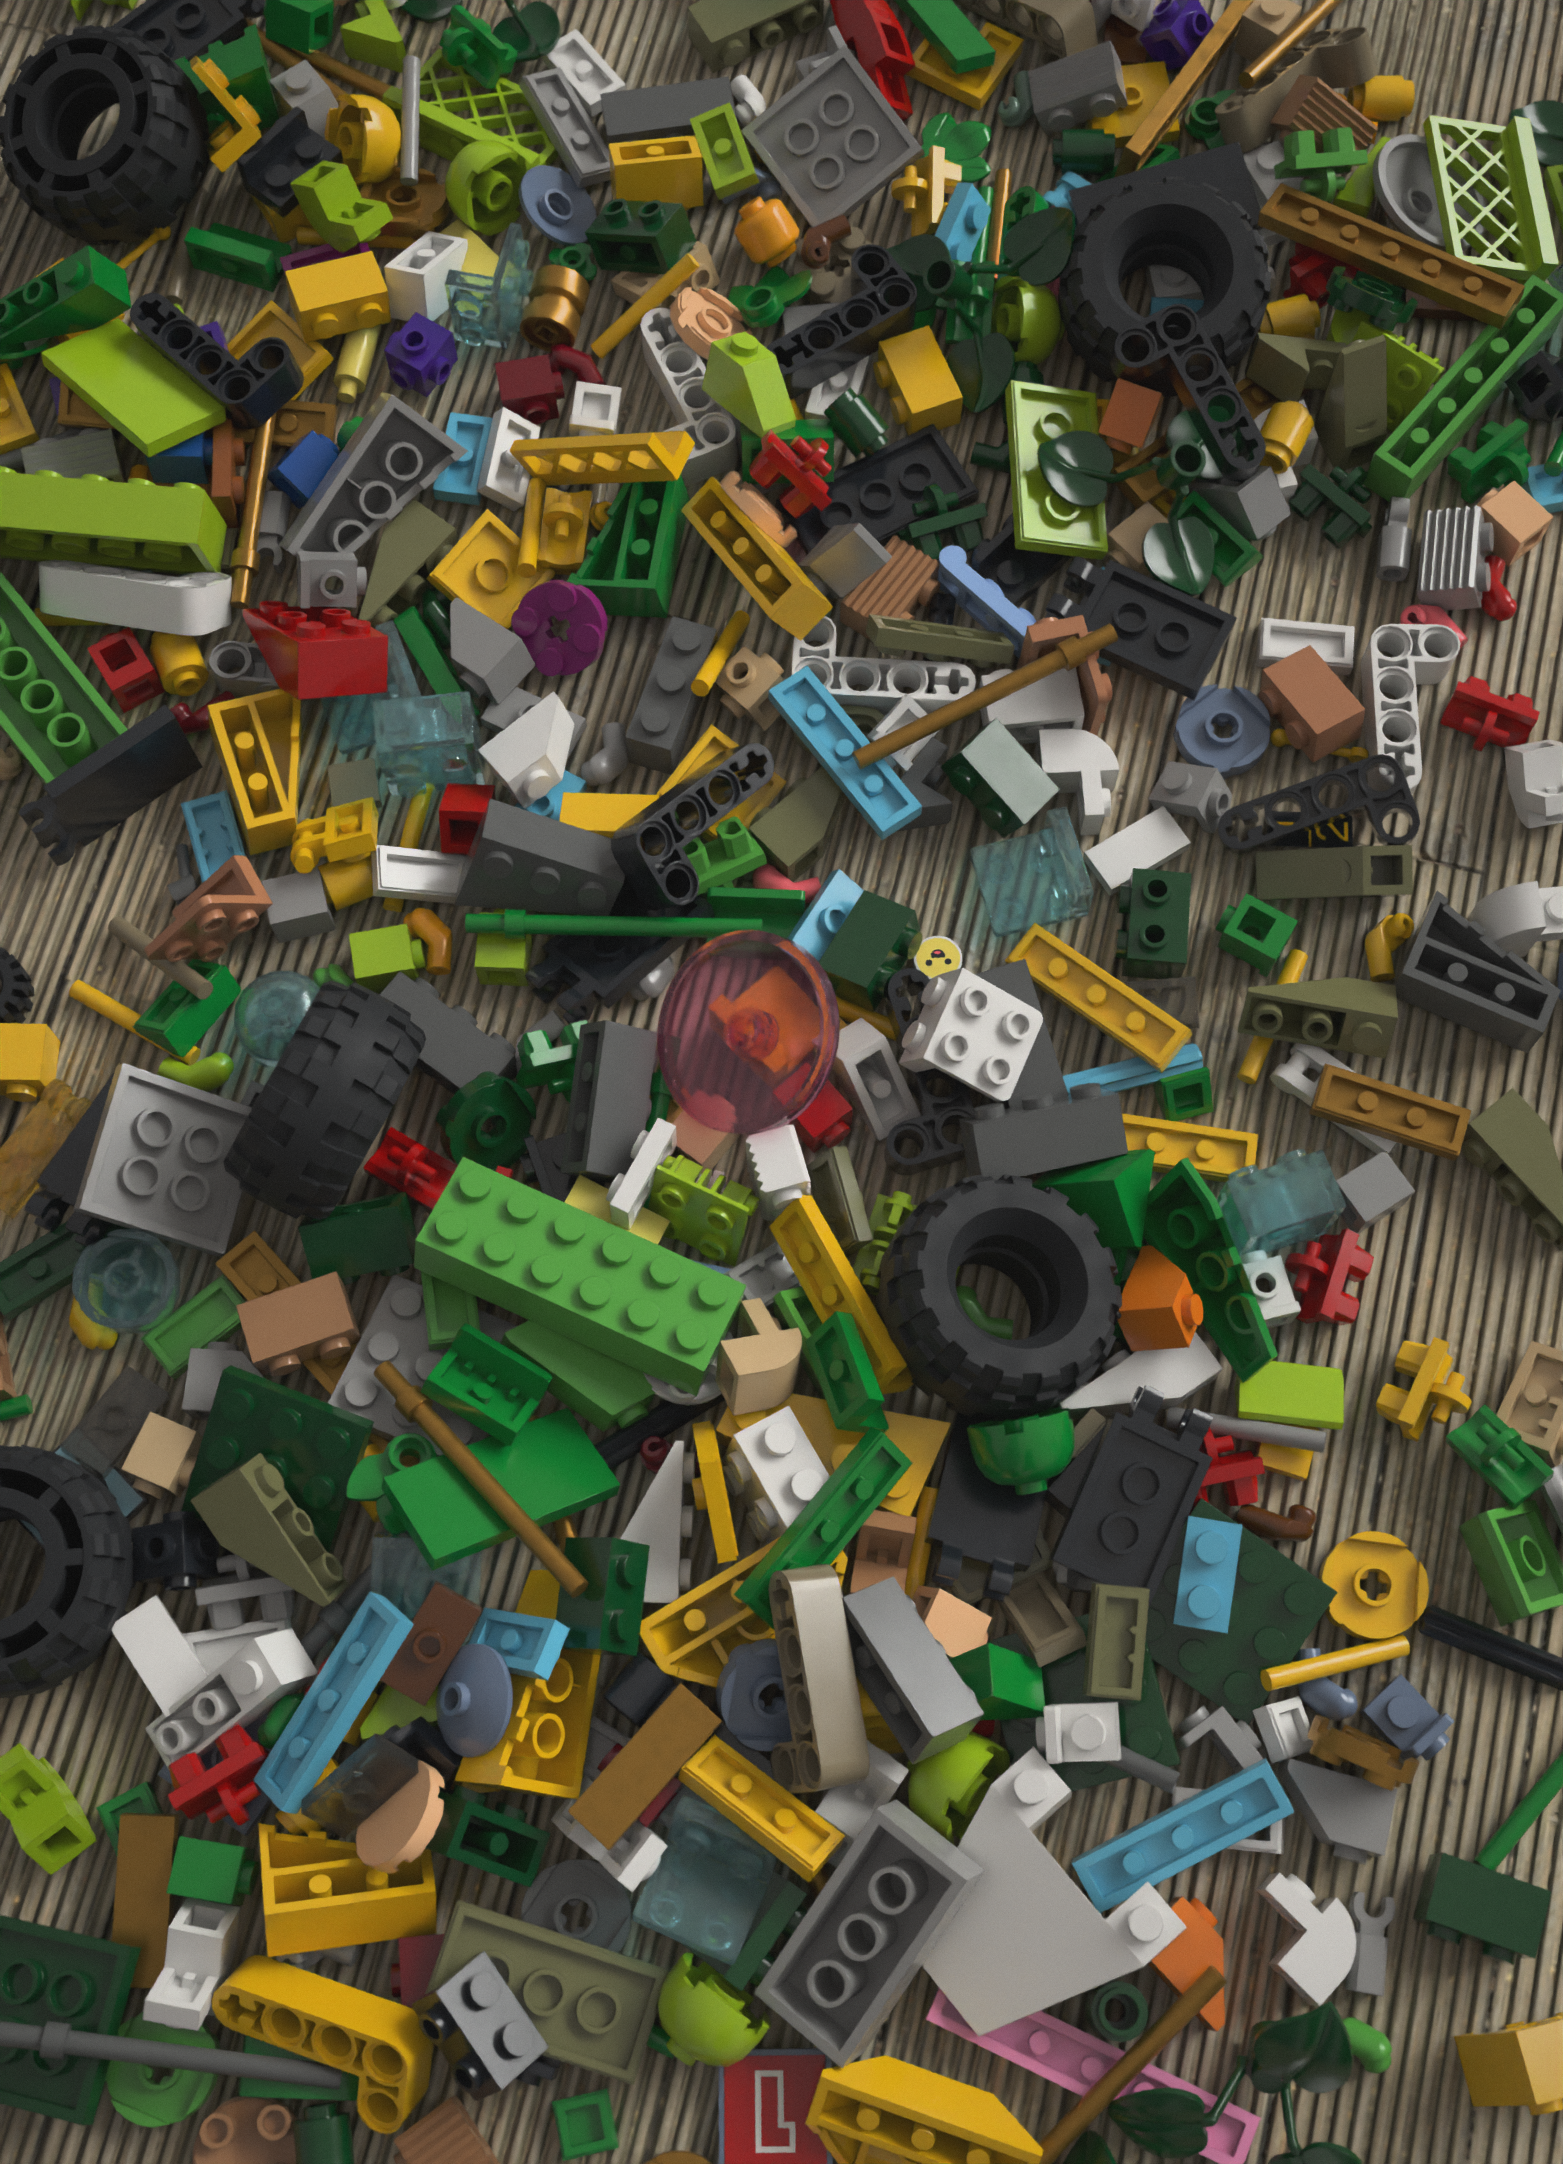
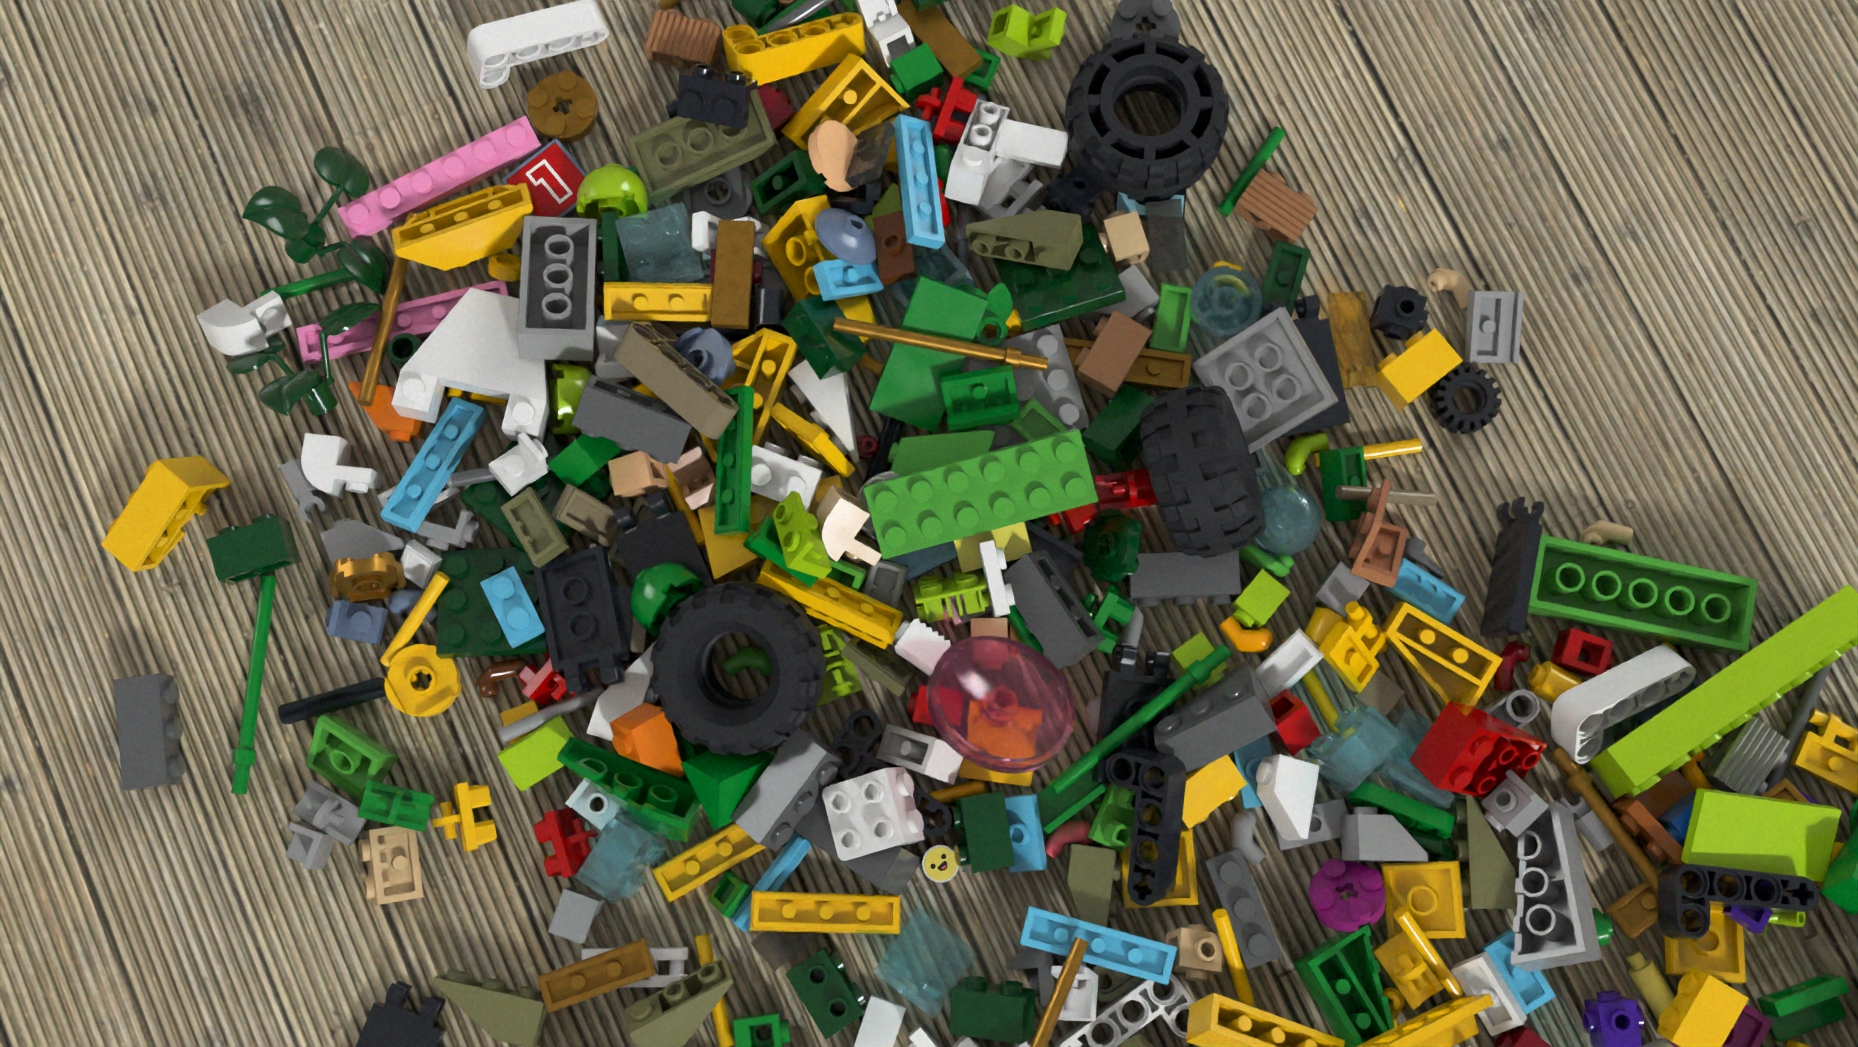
camera: 140 degrees right, 10 degrees up
(304, 467) = (1607, 878): blue brick -> none
(585, 2124) = (638, 110): green tile -> none
(820, 1369) = (800, 537): none -> lime bracket
(912, 2035) = (505, 267): none -> yellow tile
(1369, 2045) = (281, 439): bright green arm -> none

